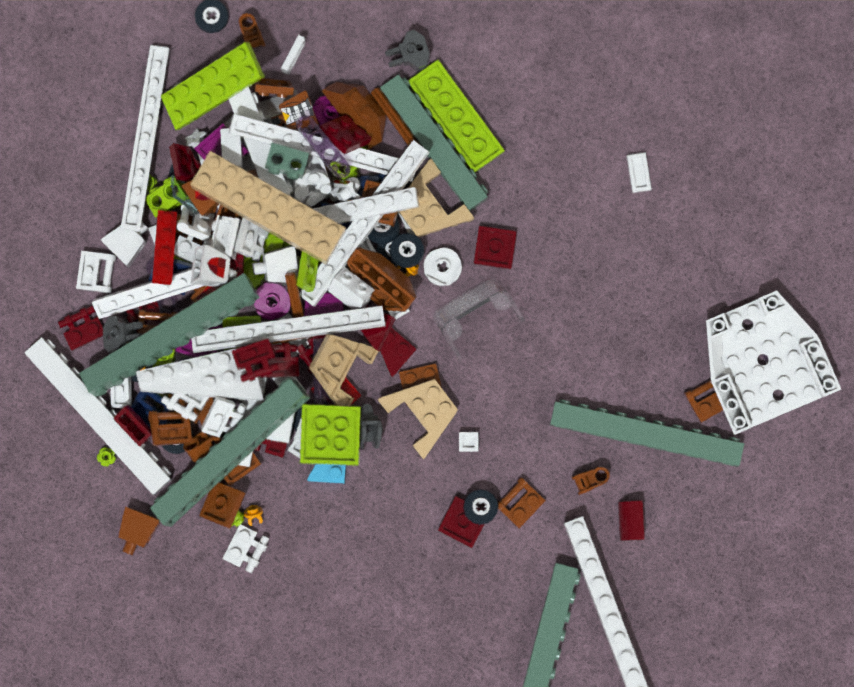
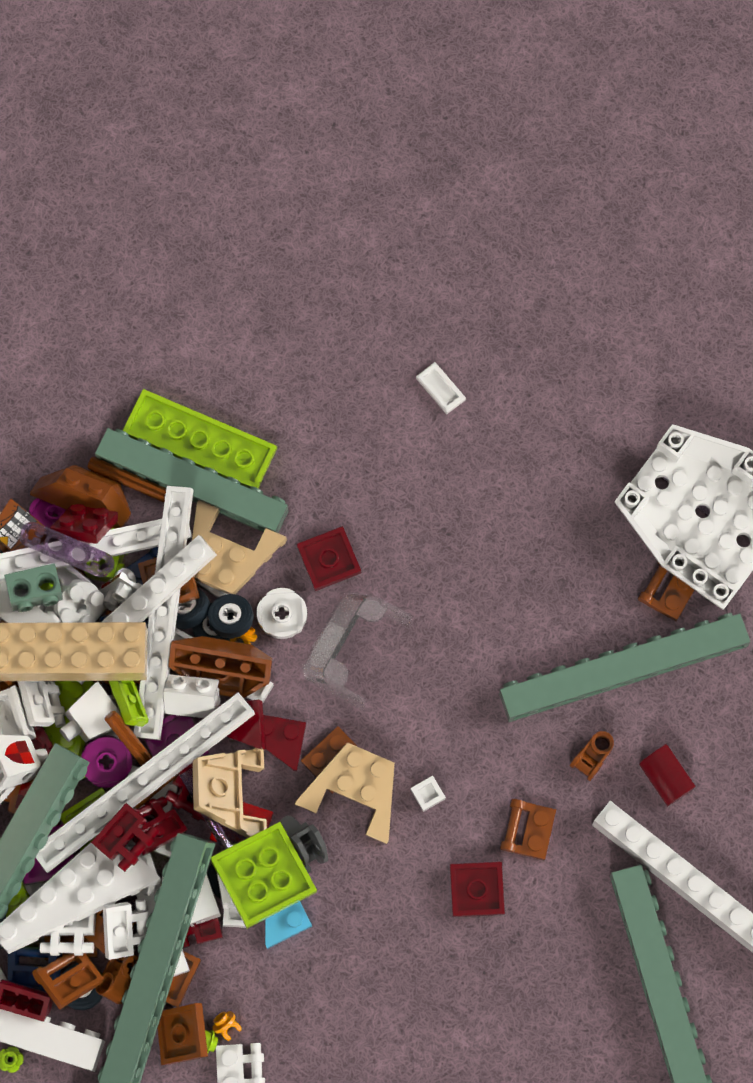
camera: 30 degrees left, 10 degrees down
(409, 52) = (108, 394): dark grey hinge -> none
(480, 517) = (479, 848): black bush -> none

